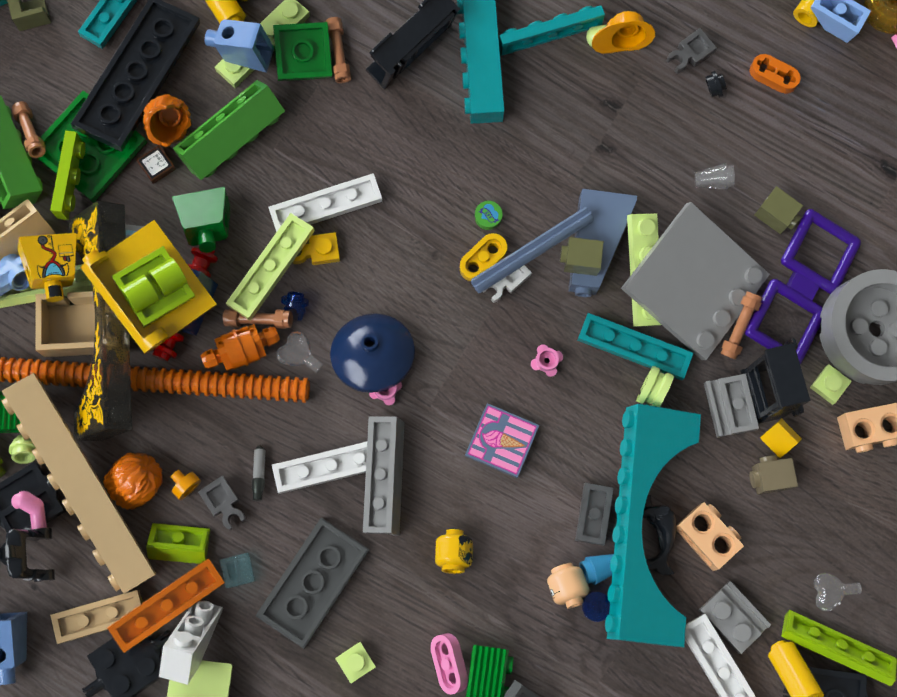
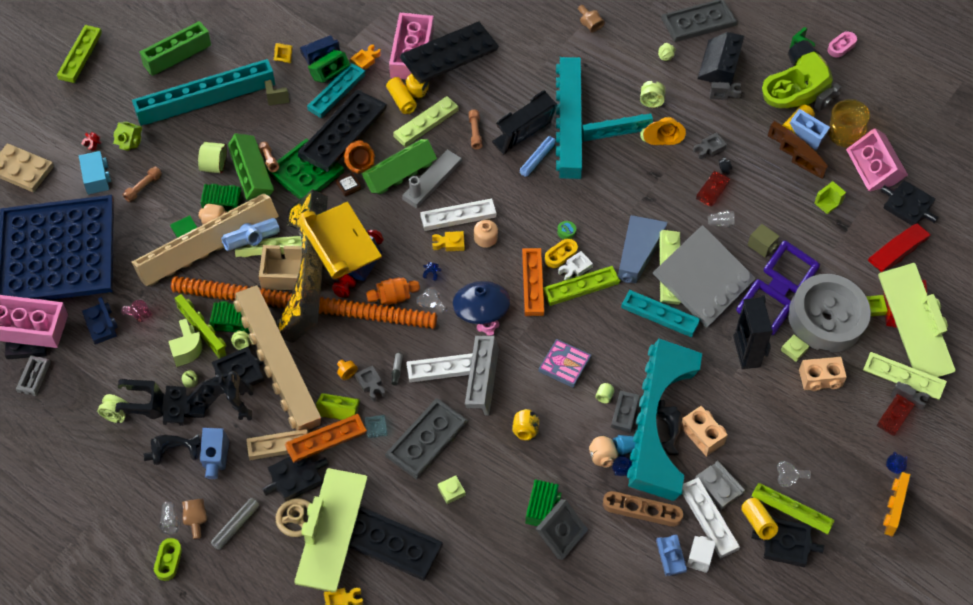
camera: 10 degrees right, 20 degrees down
(31, 505) = (241, 367): bright pink arm -> none
(49, 262) = (274, 225): yellow torso -> none
(67, 175) = (291, 182): lime plate -> none
(133, 480) = (313, 363): orange hair -> none
(153, 286) = (343, 237): lime plate -> none
(189, 642) = (339, 457): white slope -> none
(204, 217) = (376, 213): torso -> none
(242, 44) = (413, 116): medium blue torso -> none
(270, 266) = (418, 244): yellowish green plate -> none
(280, 142) = (422, 187): none -> light grey piece
(281, 319) = (422, 275): nougat bar -> none
(302, 51) = (452, 127): green plate -> none
(361, 237) = (485, 233): none -> light nougat head
(435, 89) = (537, 156): none -> light blue axle
(445, 310) = (532, 282): none -> orange plate
(449, 663) = (516, 493): bright pink plate -> none
(516, 307) = (581, 285): none -> lime tile
(532, 250) = (593, 247): sand blue axle -> none
(543, 353) = (603, 314): bright pink plate -> none
(564, 486) = (605, 393): none -> yellowish green piece
(582, 256) = (627, 250): olive brick -> none
(629, 664) = (643, 505): none -> medium nougat beam
(655, 387) = (673, 333): yellowish green wheel -> none
(699, 123) = (713, 188): none -> clear red plate
(731, 405) = (724, 354): light grey plate -> none
(751, 302) = (727, 319): nougat bar -> none
(773, 475) = (751, 397): dark tan brick -> none
(774, 73) = (766, 163): orange beam -> none
(780, 438) = (757, 375): yellow tile -> none
(829, 53) = (802, 153): none -> reddish brown slope
(872, 127) = (830, 197): none -> lime panel

